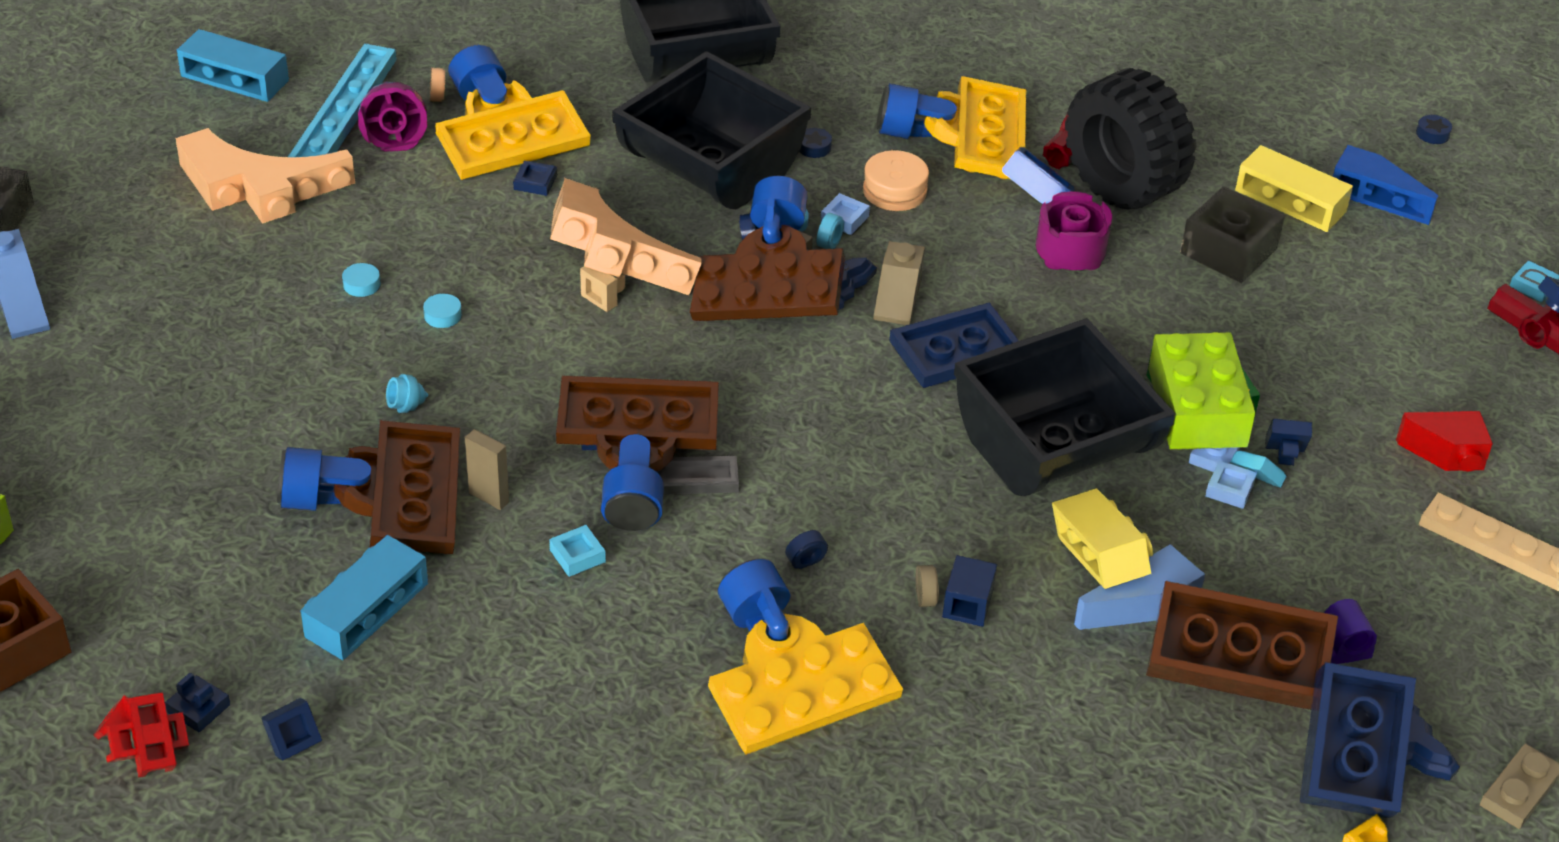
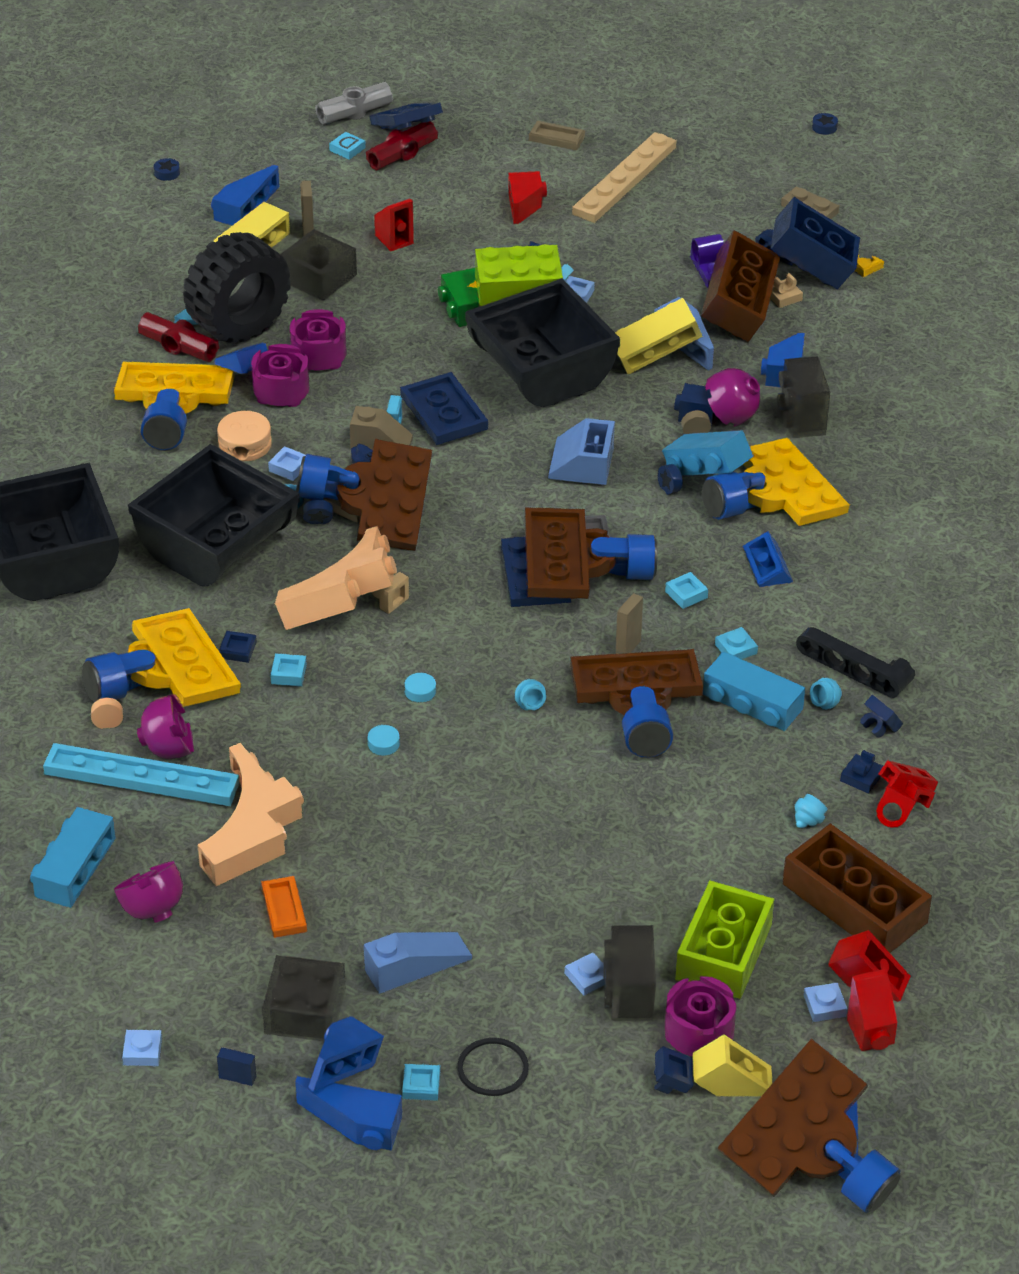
camera: 90 degrees left, 0 degrees up
(130, 204) = (284, 906): none -> orange tile
(136, 635) = (809, 811): none -> medium azure plate
(157, 104) = (152, 892): none -> magenta cylinder
(350, 676) = (825, 693): none -> medium azure plate
(367, 742) = (883, 677): none -> black beam
(470, 597) = (736, 643): none -> medium azure plate
(483, 208) = (288, 669): none -> medium azure plate
(637, 649) = (767, 561): none -> blue slope
(824, 567) = (708, 452): none -> dark azure brick
(851, 468) = (584, 452): none -> medium blue slope
(935, 297) = (395, 407): none -> medium azure tile
(969, 614) = (733, 395): none -> magenta cylinder
(969, 696) = (804, 397): none -> clear smoke brick
(999, 200) = (280, 375): none -> magenta brick
(1081, 703) = (777, 353): none -> blue slope
(1271, 725) = (786, 291): none -> tan tile
(1335, 304) = (395, 225): none -> red slope
(1342, 220) = (306, 207): none -> dark tan tile

